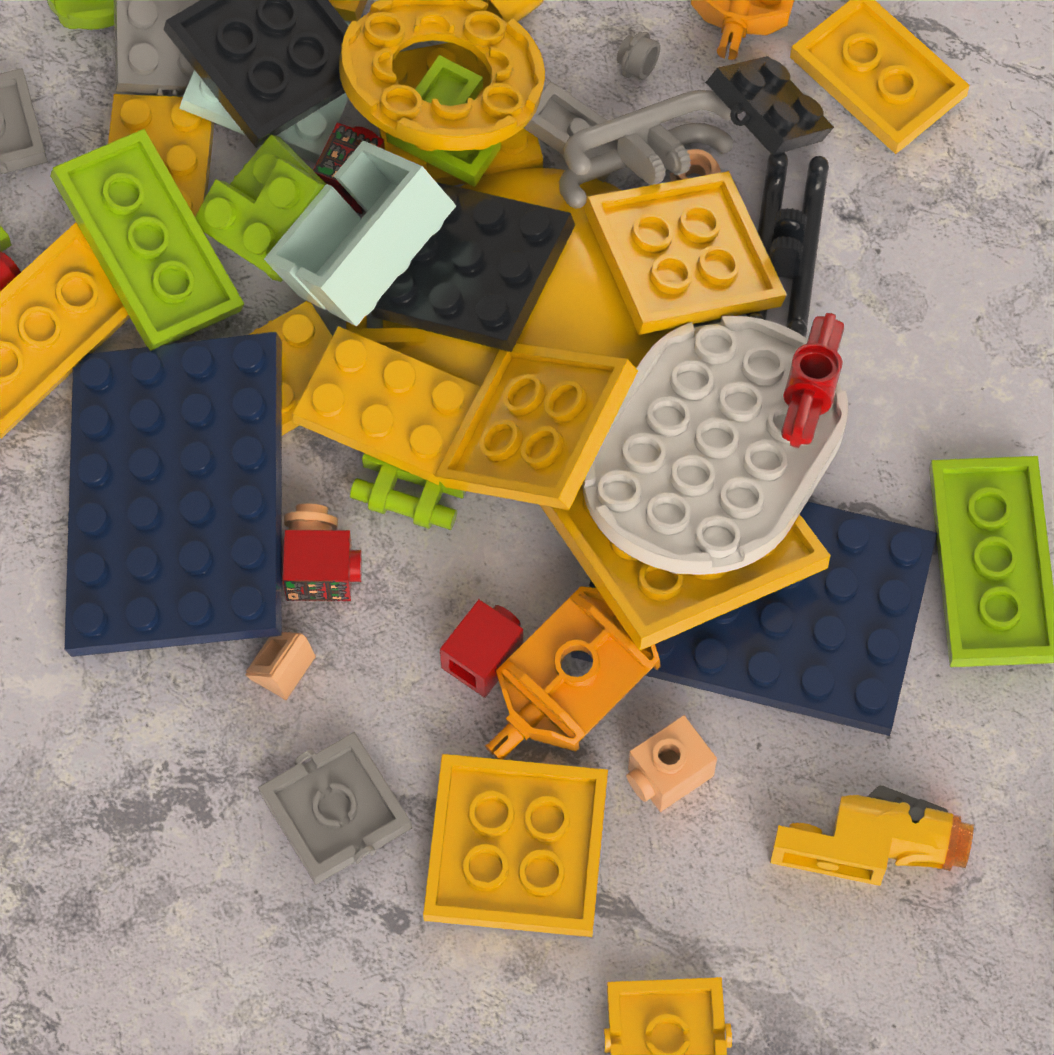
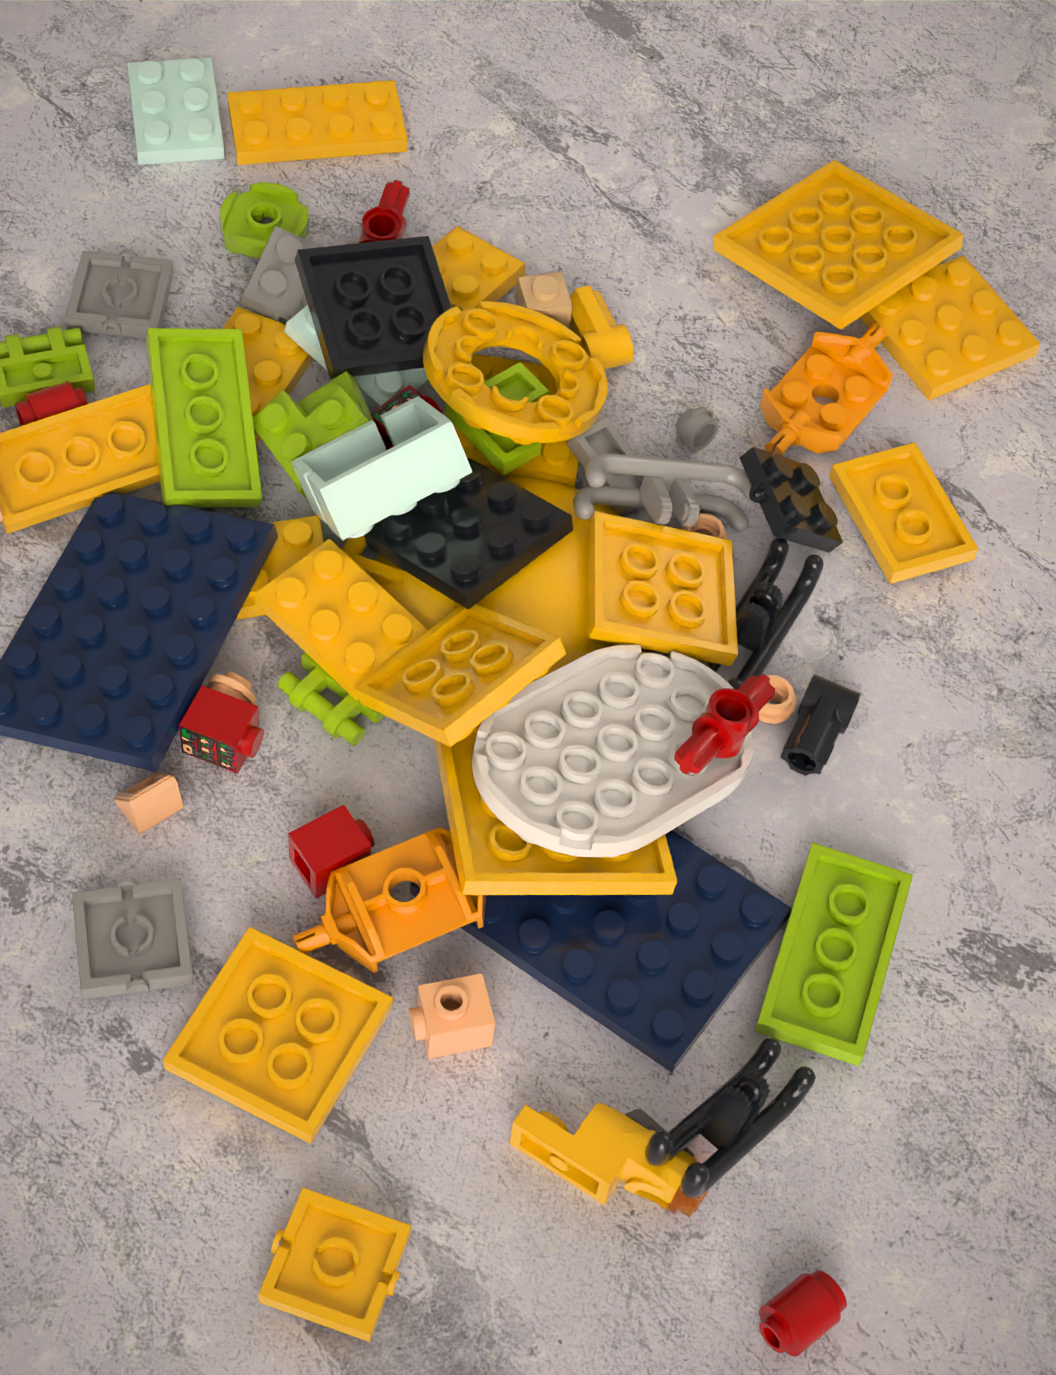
camera: 15 degrees right, 10 degrees down
(843, 313) = (785, 699): none -> light nougat plate
(889, 322) = (822, 717): none -> black piece
(969, 761) = (731, 1120): none -> black piece

